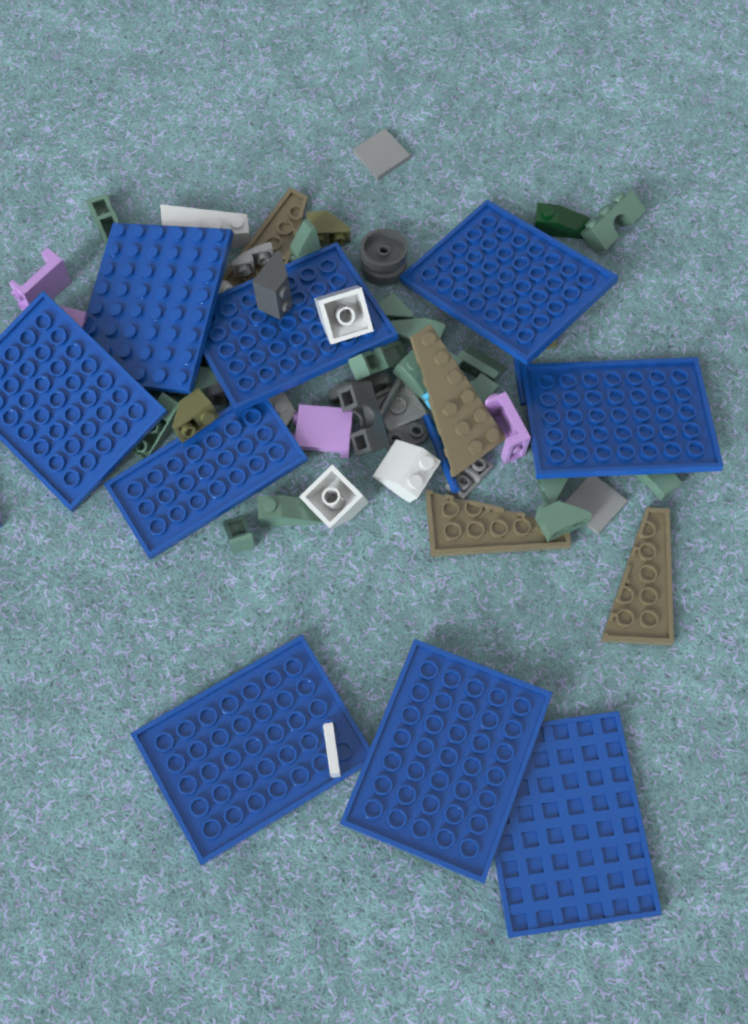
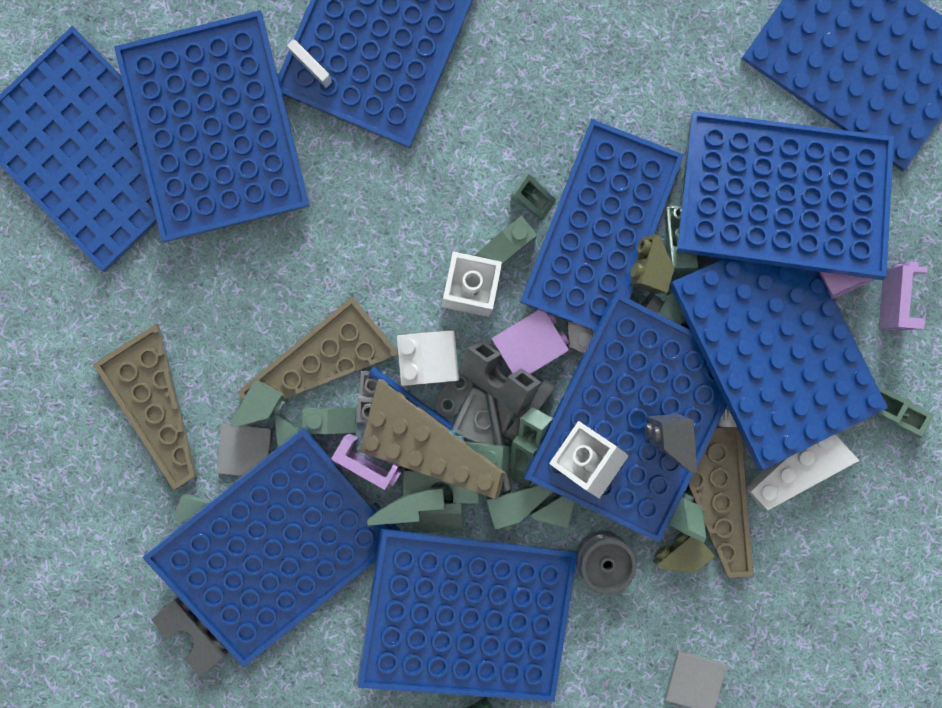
camera: 140 degrees right, 20 degrees up
(244, 263) = (728, 457): light grey slope -> none
(497, 374) = (408, 507): none -> sand green slope
(515, 479) = (329, 420): none -> sand green slope
(726, 419) = (206, 648): none -> dark grey arch

